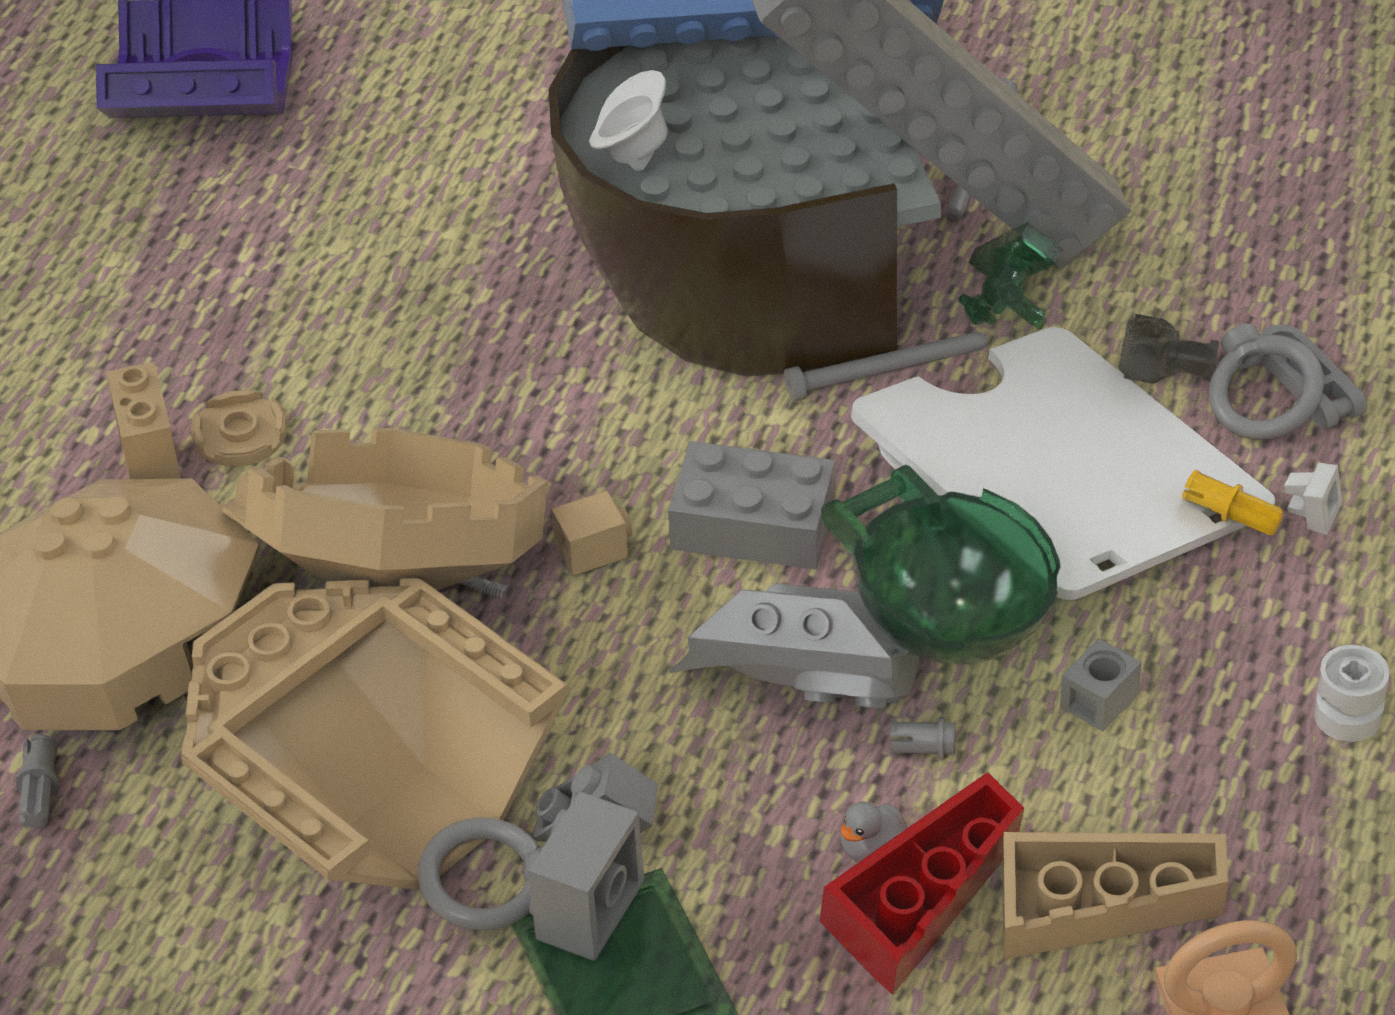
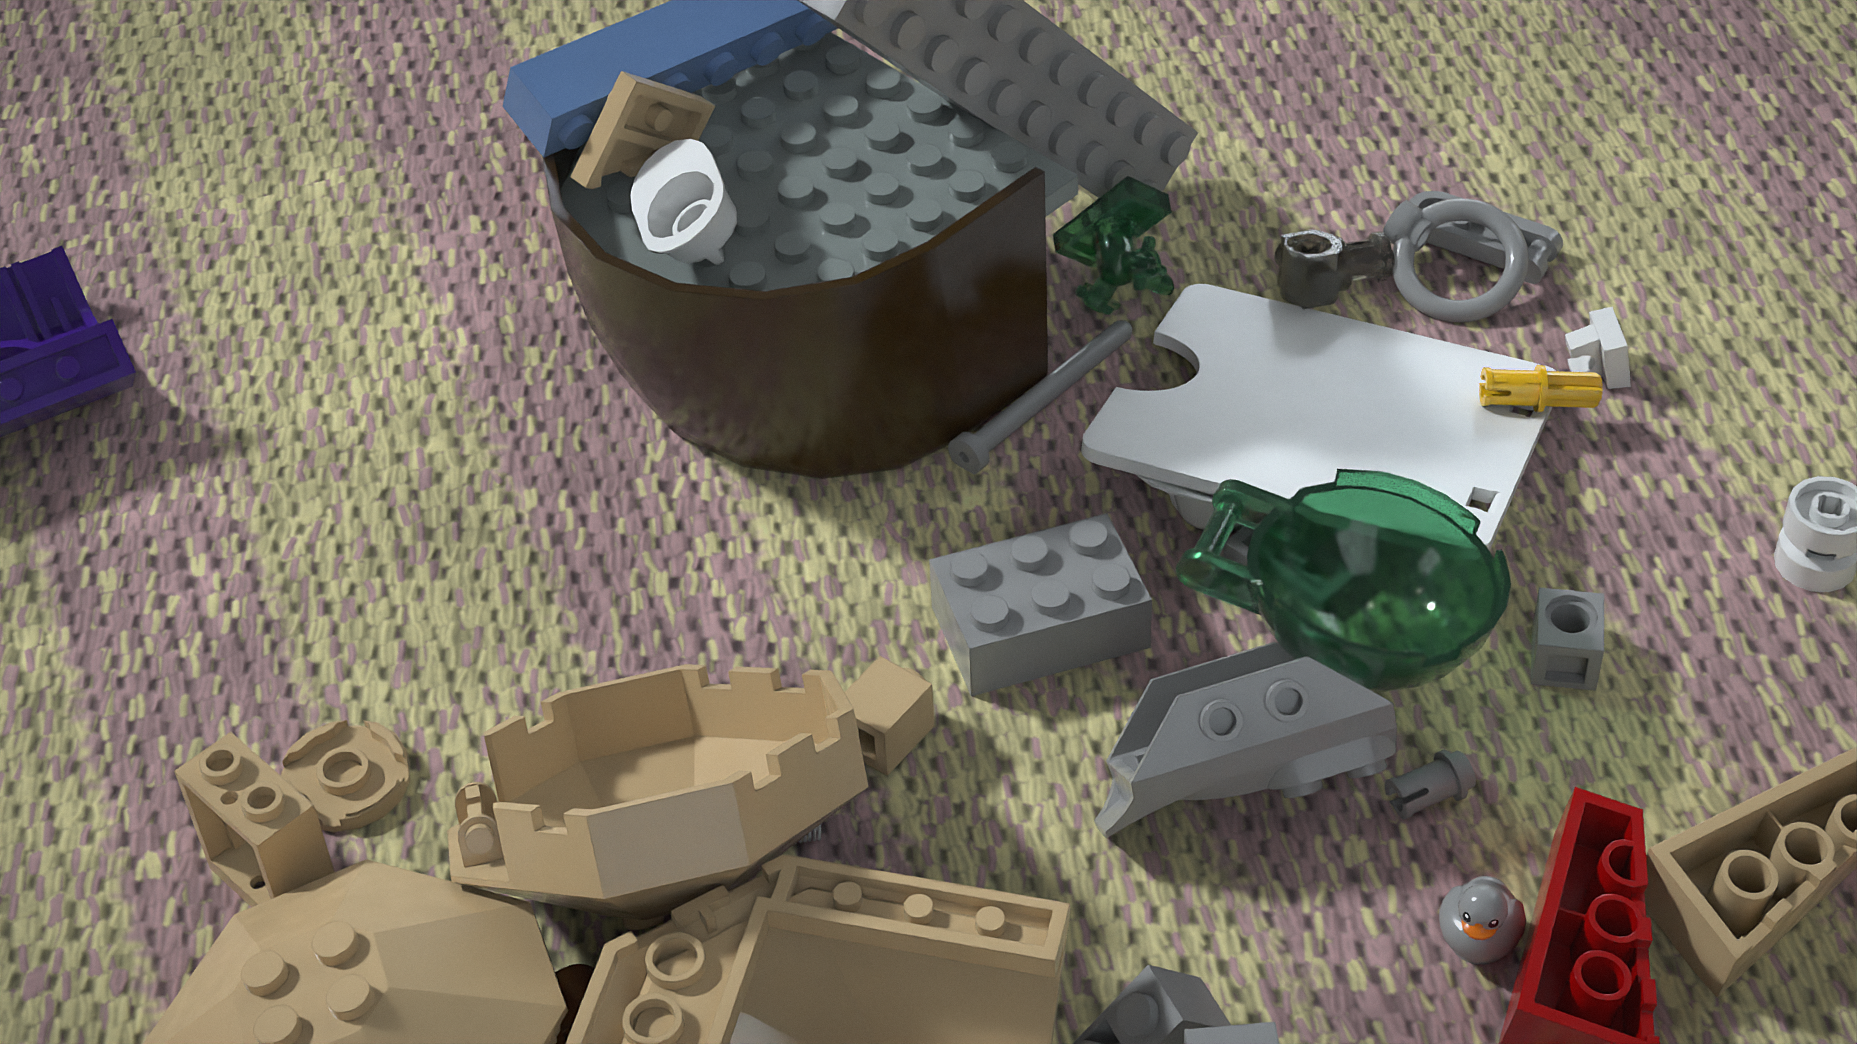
camera: 30 degrees left, 0 degrees up
(642, 45) = (635, 124): none -> tan wing

